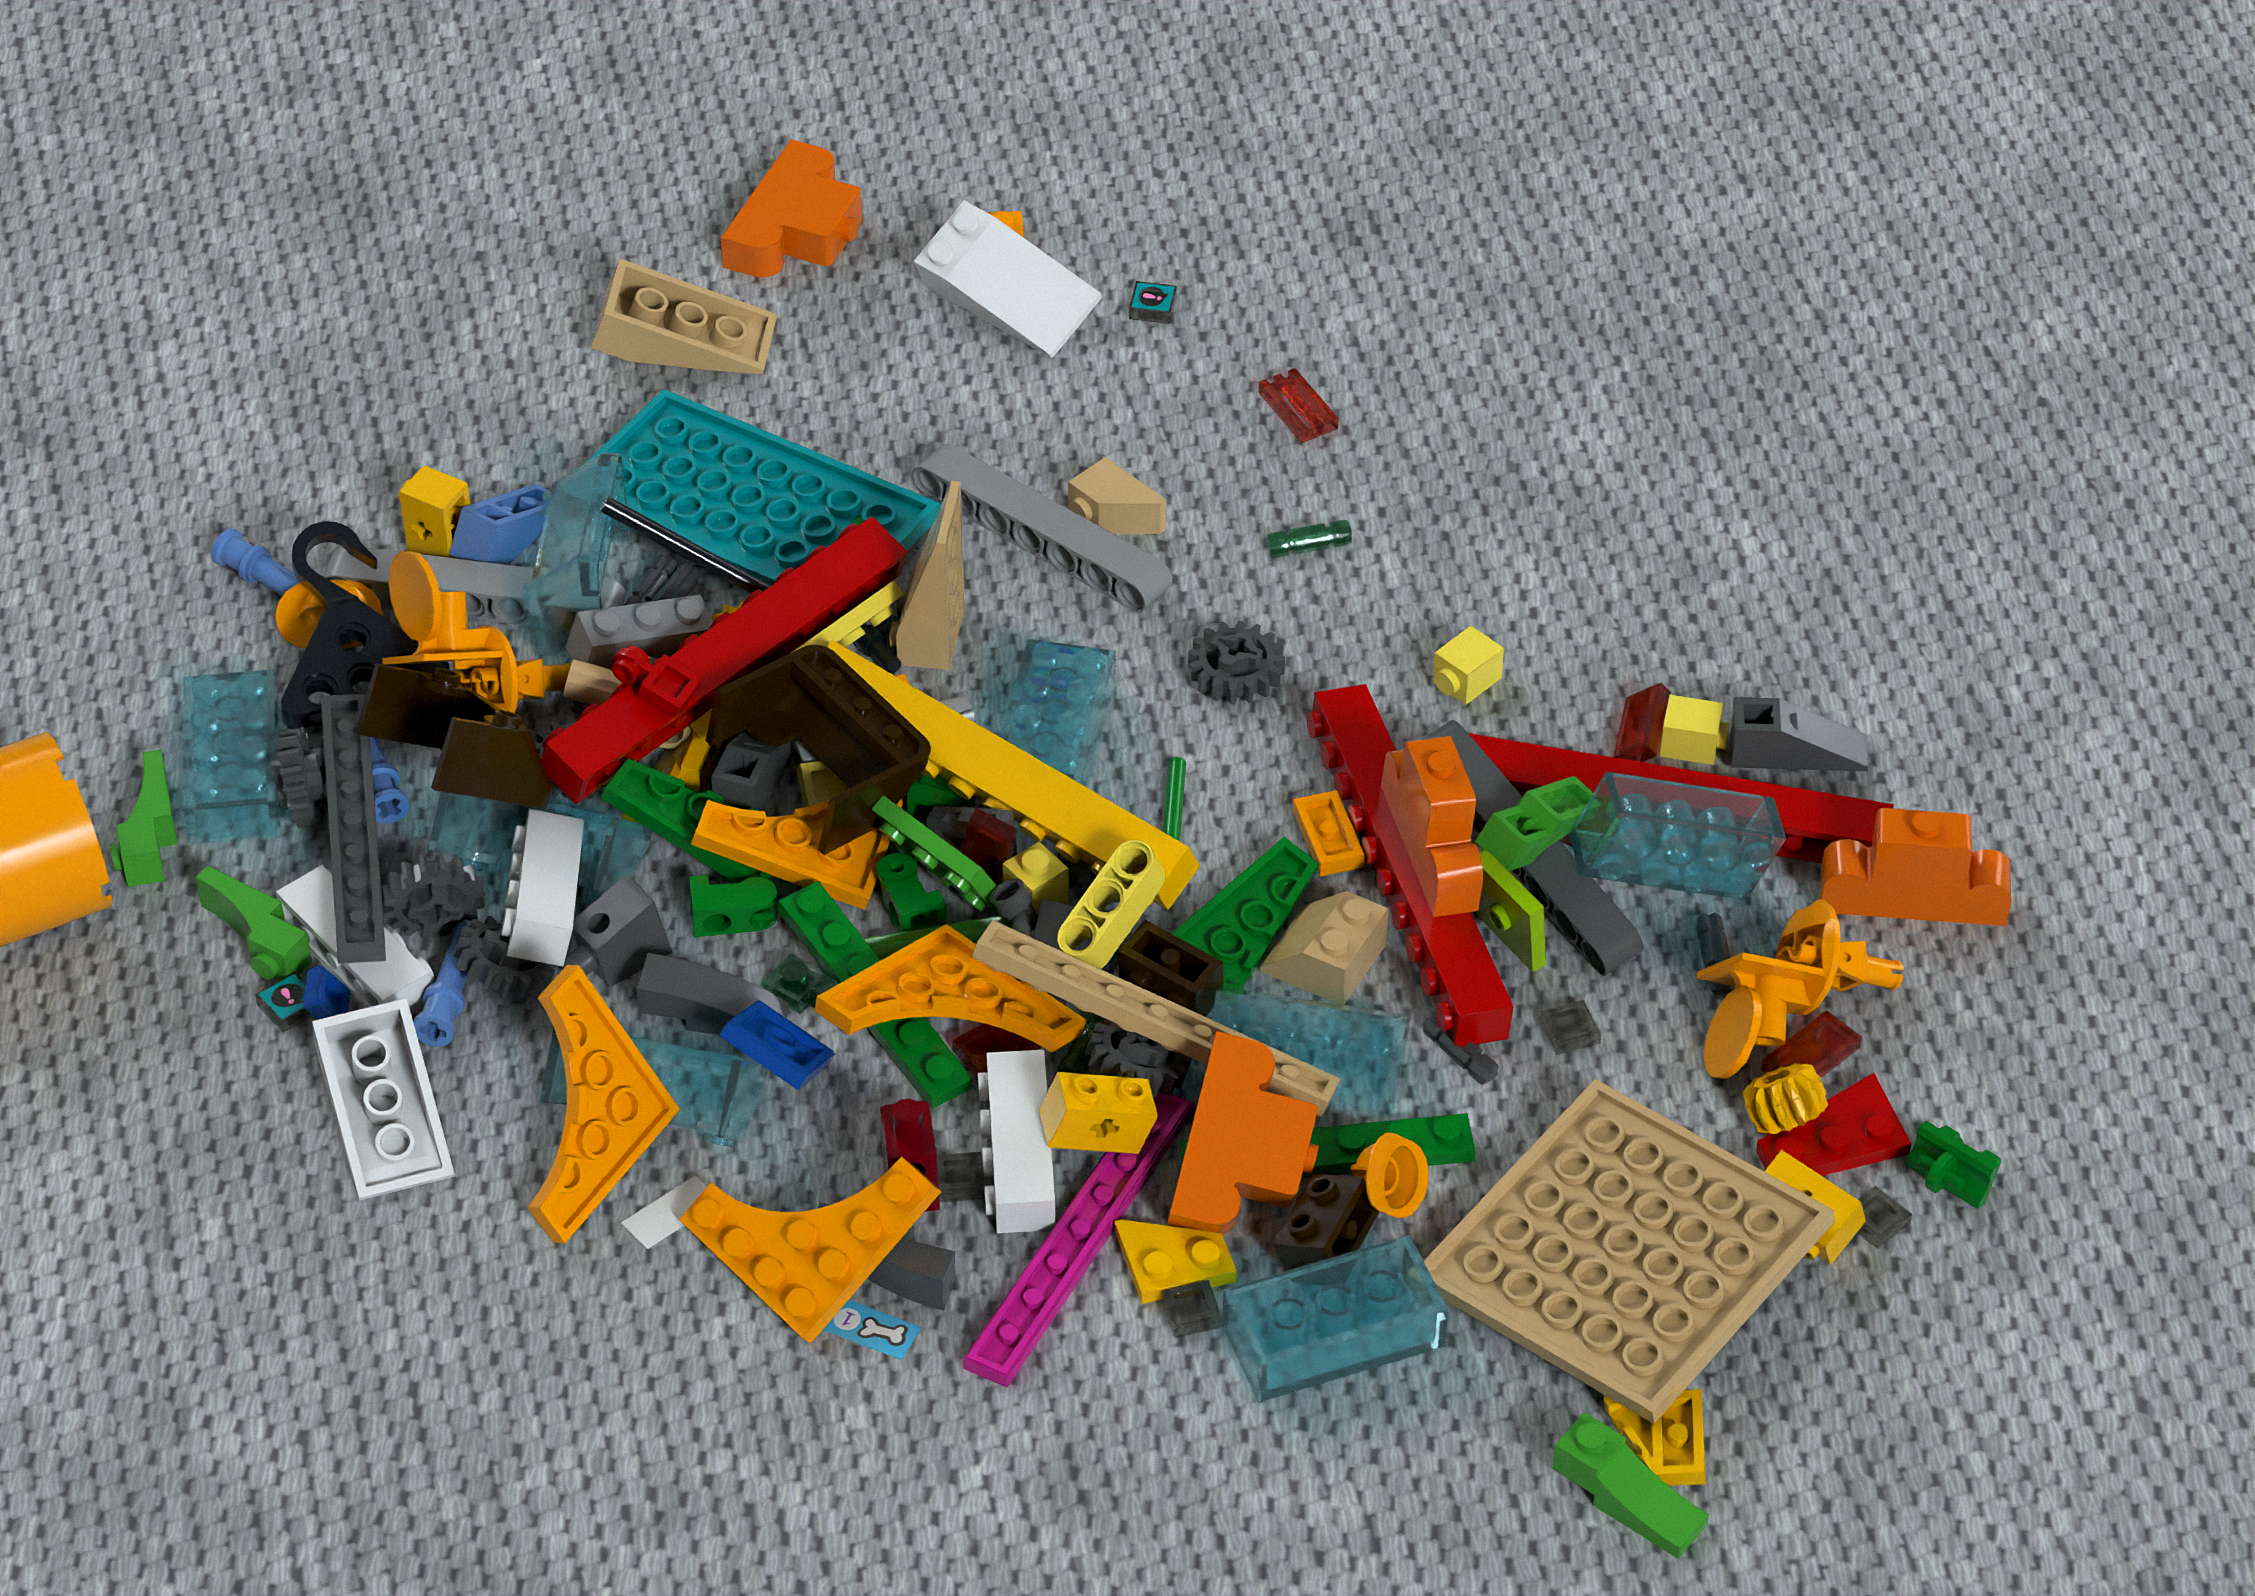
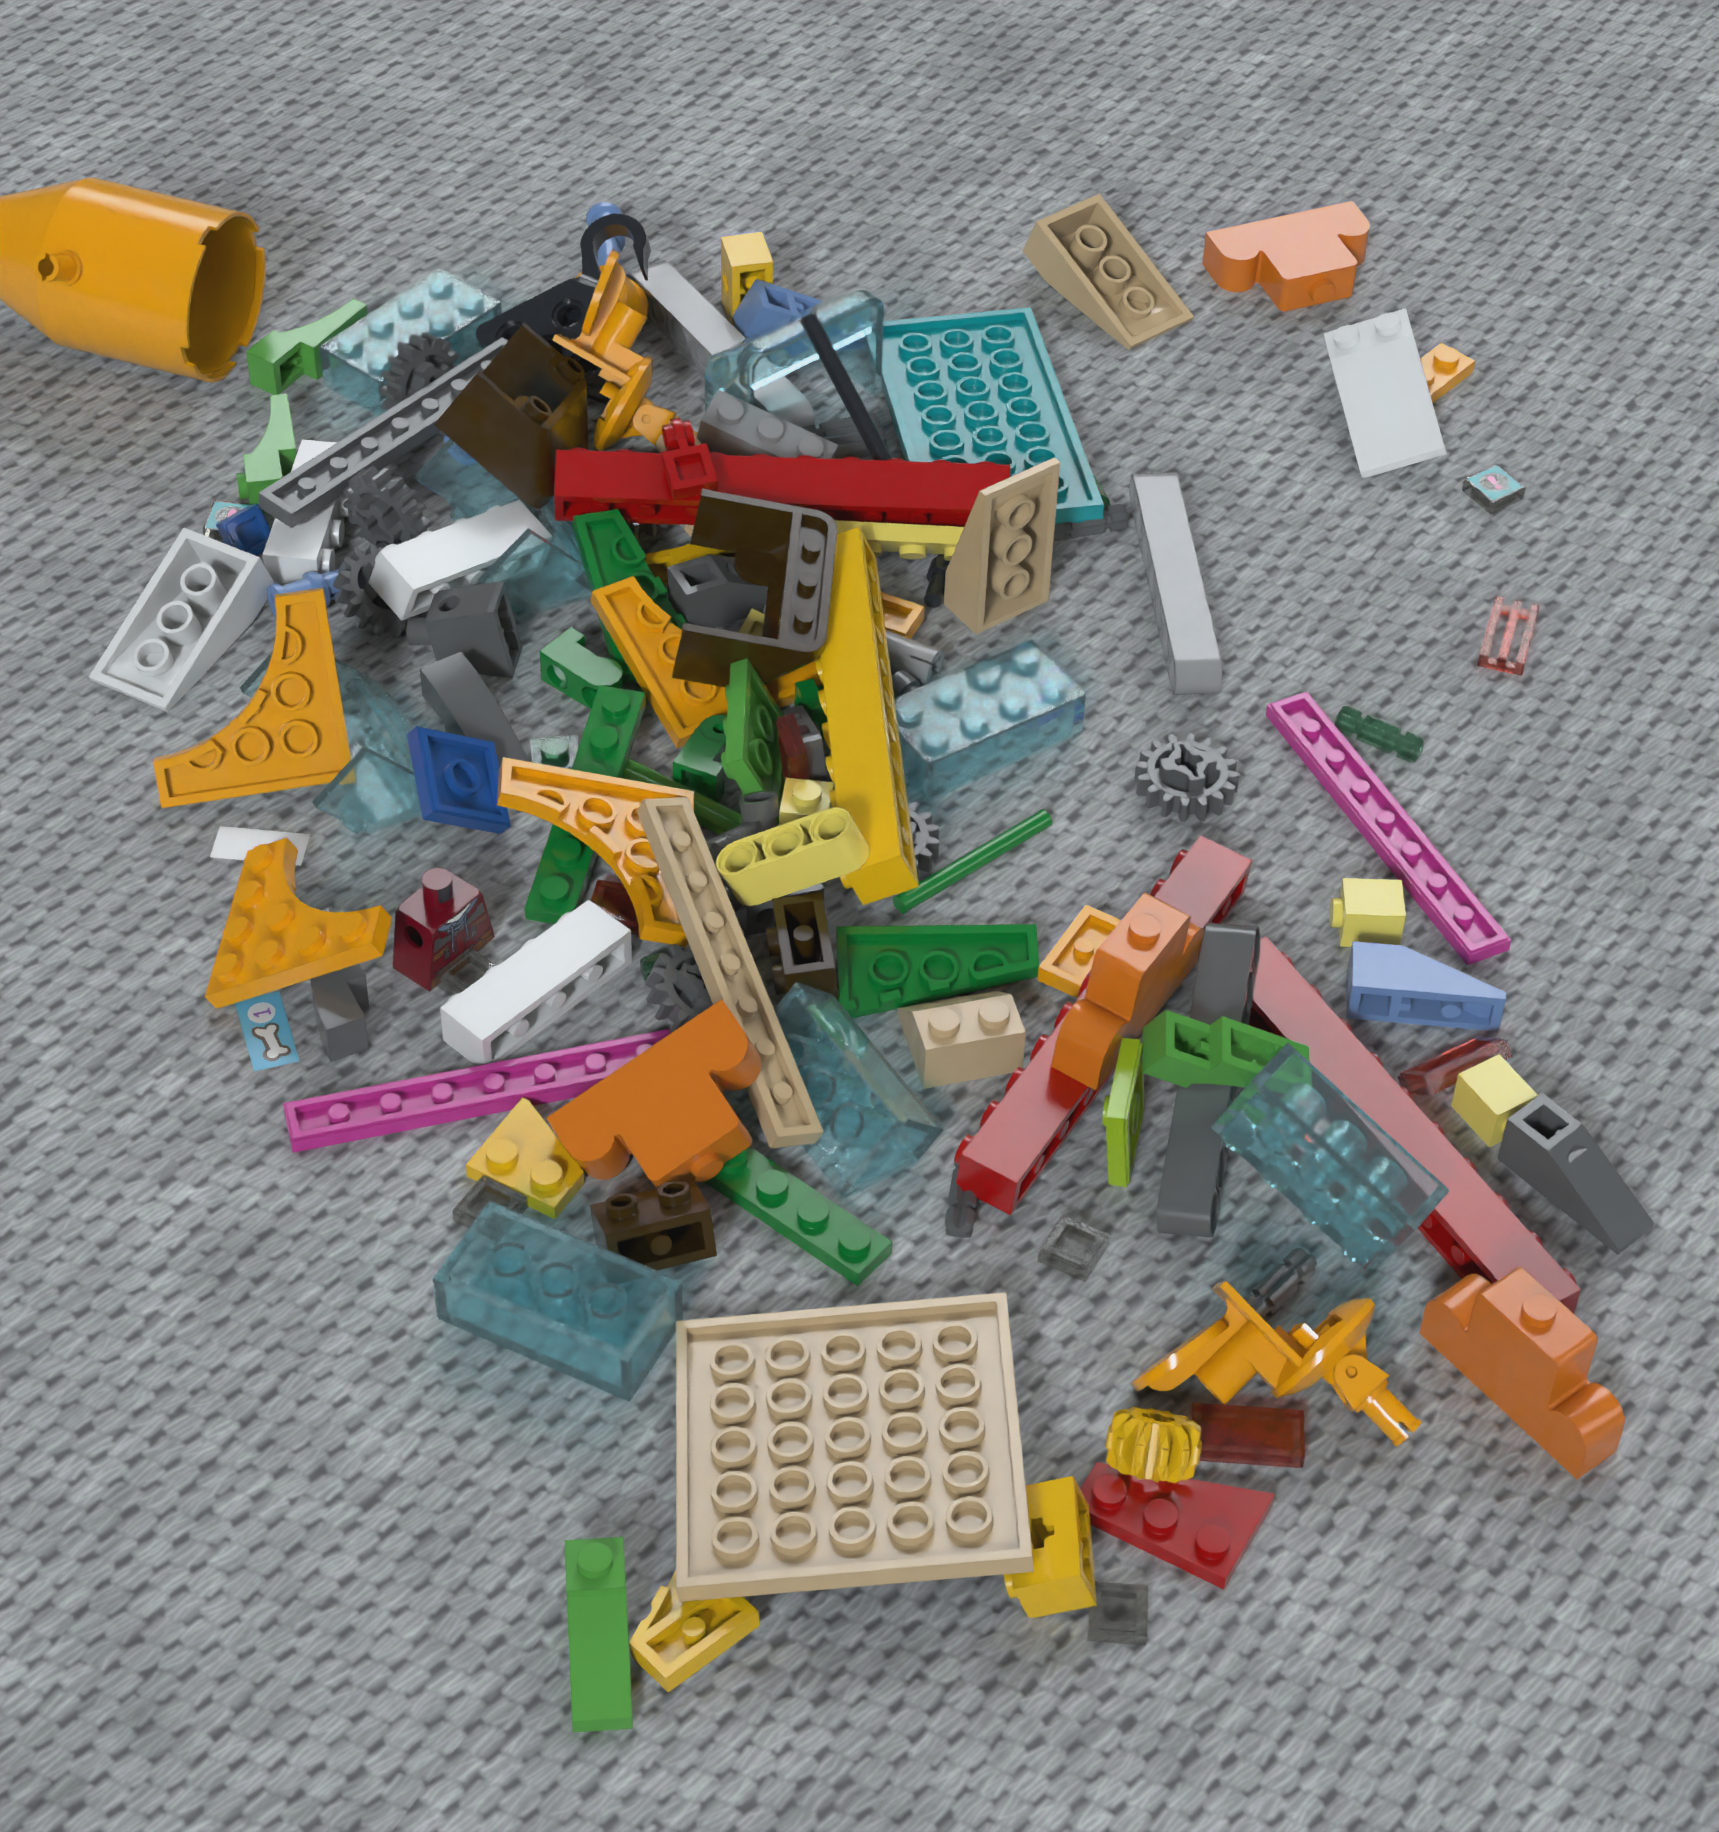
camera: 45 degrees right, 0 degrees up
(1098, 1113) = (592, 1000): yellow brick -> none
(1116, 500) = (1253, 599): tan slope -> none
(1389, 598) = (1388, 829): none -> dark pink tile
(1393, 1174) = (749, 1232): light orange piece -> none
(1556, 694) = (1411, 988): none -> medium blue slope
(1952, 1164) = (1227, 1625): green hips -> none

